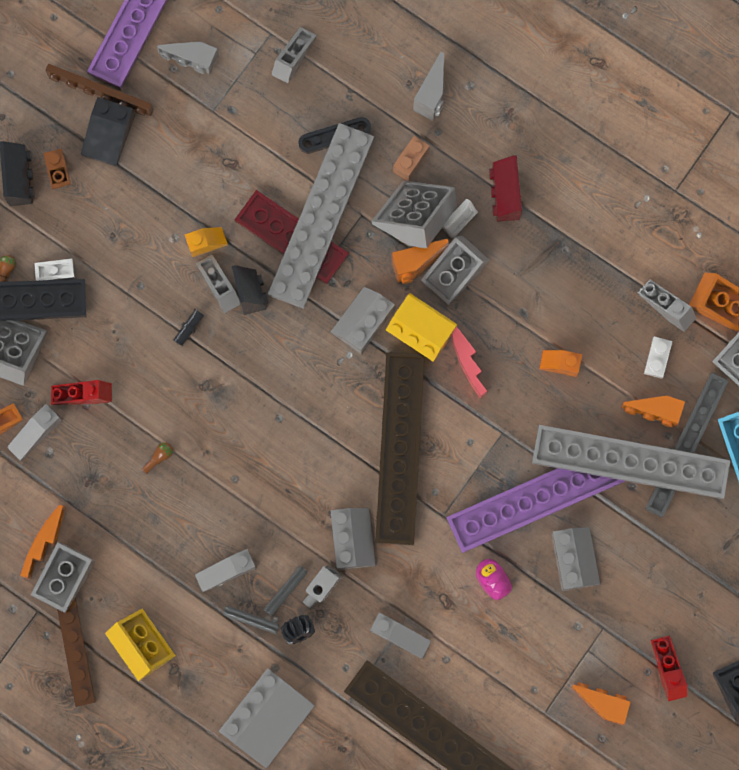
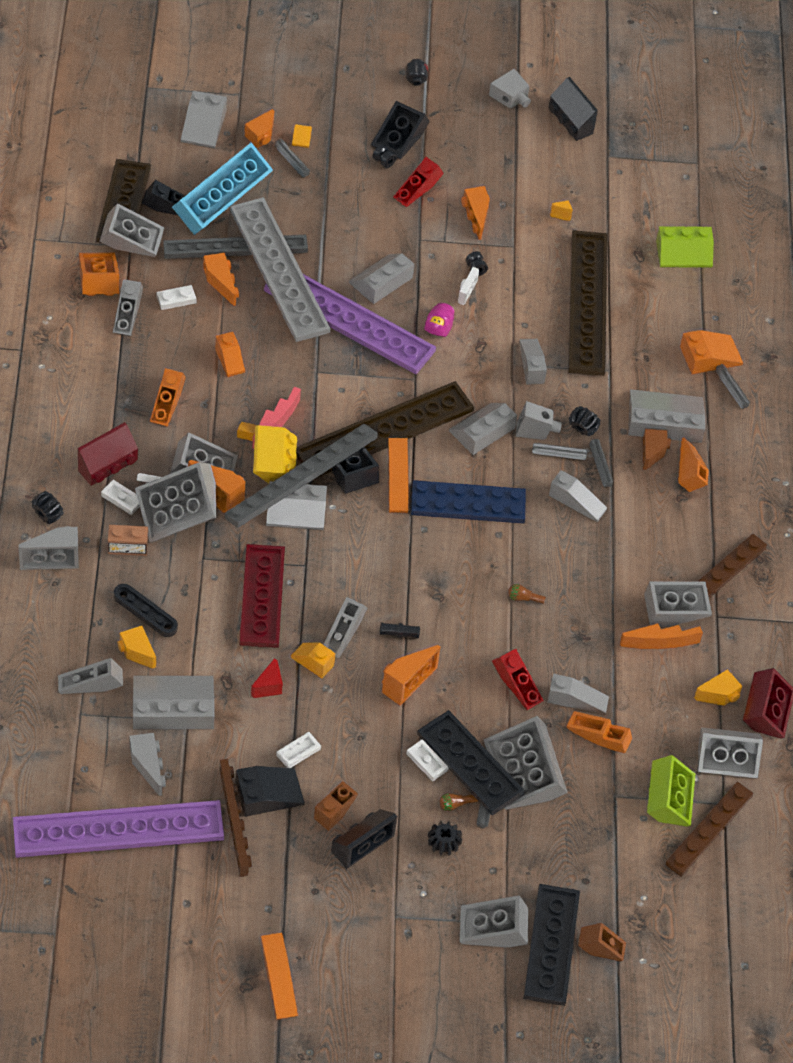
camera: 130 degrees left, 25 degrees down
(128, 176) = (298, 750): none -> white plate
(134, 291) = (409, 673): none -> orange slope
(140, 644) = (684, 524): yellow slope -> none
(194, 697) = (692, 469): none -> orange slope
(203, 191) = (269, 682): none -> red slope
(235, 107) = (173, 702): none -> light grey slope
(236, 678) = (654, 446): none -> dark orange slope
(249, 289) = (331, 599): black slope -> none
(282, 473) = (468, 501): none -> dark blue plate
(301, 107) = (137, 647): none -> light orange slope
(321, 216) = (227, 577): light grey plate -> none
(342, 426) = (398, 475): none -> orange slope
(370, 390) = (356, 471): none -> black slope
(380, 331) = (300, 475): none -> dark grey plate
(462, 180) = (121, 497): none -> white plate
(471, 329) = (246, 431): none -> light orange slope
(481, 110) = (47, 507): none -> black gear
(517, 630) = (468, 285): none -> white plate
(533, 657) = (475, 260): none -> black wheel
(545, 281) = (167, 397): none -> orange slope
(721, 656) = (385, 156): none -> black wheel

